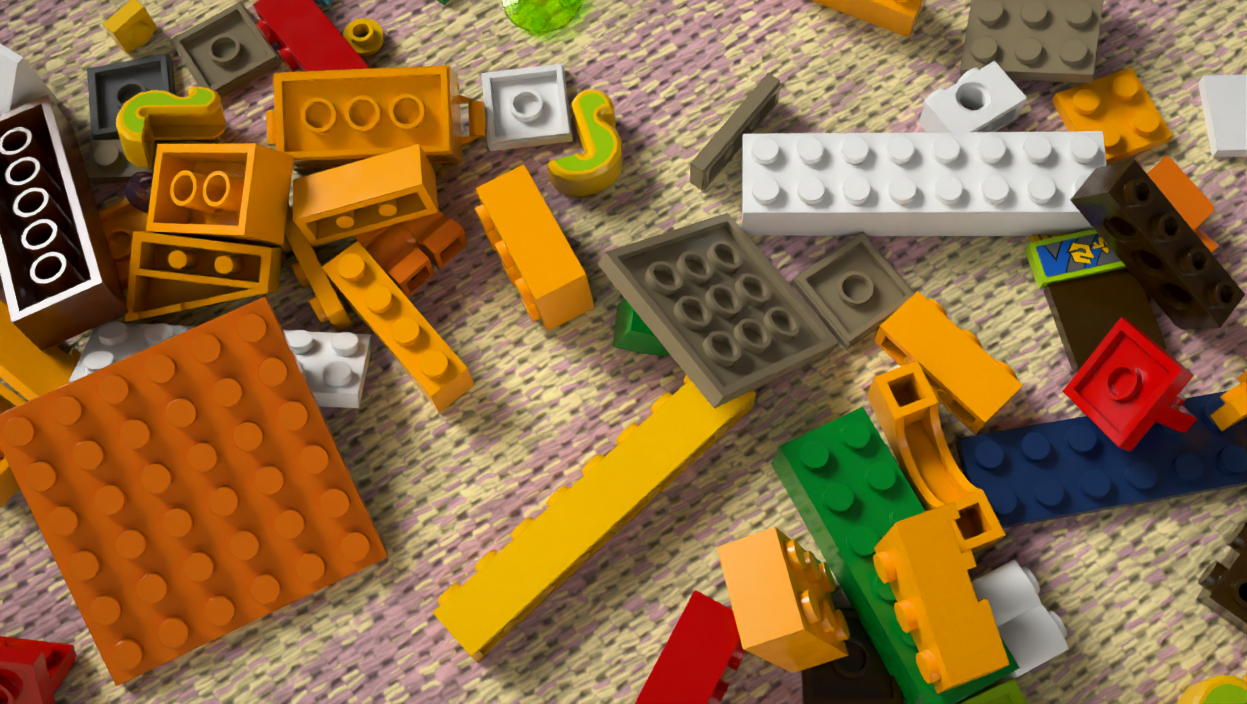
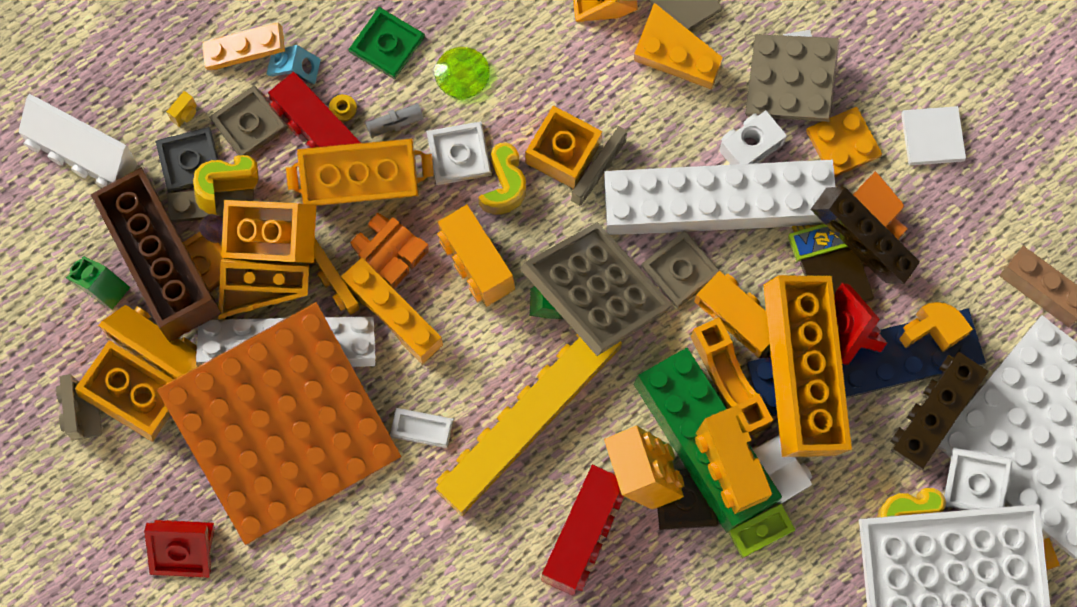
camera: 10 degrees left, 5 degrees up
(365, 195) = (364, 227): light orange brick -> none
(426, 512) = (421, 428): none -> white tile
(464, 48) = (394, 120): none -> light grey pin
(682, 99) = (563, 147): none -> light orange brick
(1065, 451) = (807, 366): none -> light orange brick

